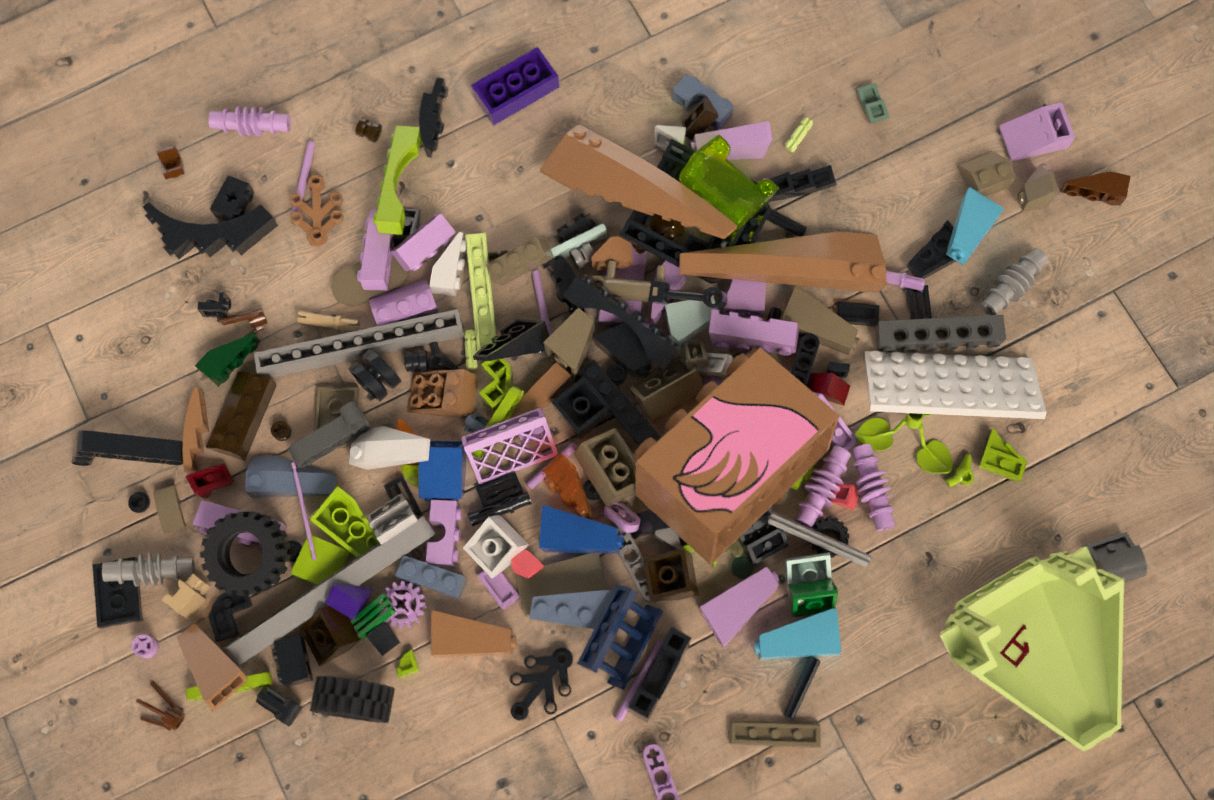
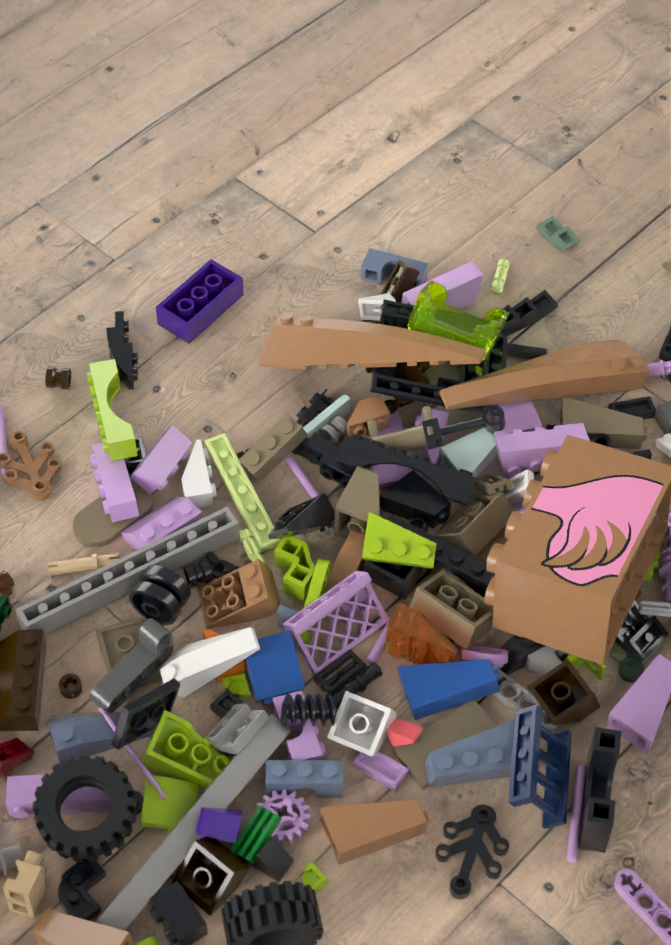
camera: 25 degrees left, 20 degrees down
(321, 484) = (144, 713): none -> black tile
(450, 524) = (308, 709): none -> black piece
(581, 395) = (396, 545): none -> lime wing

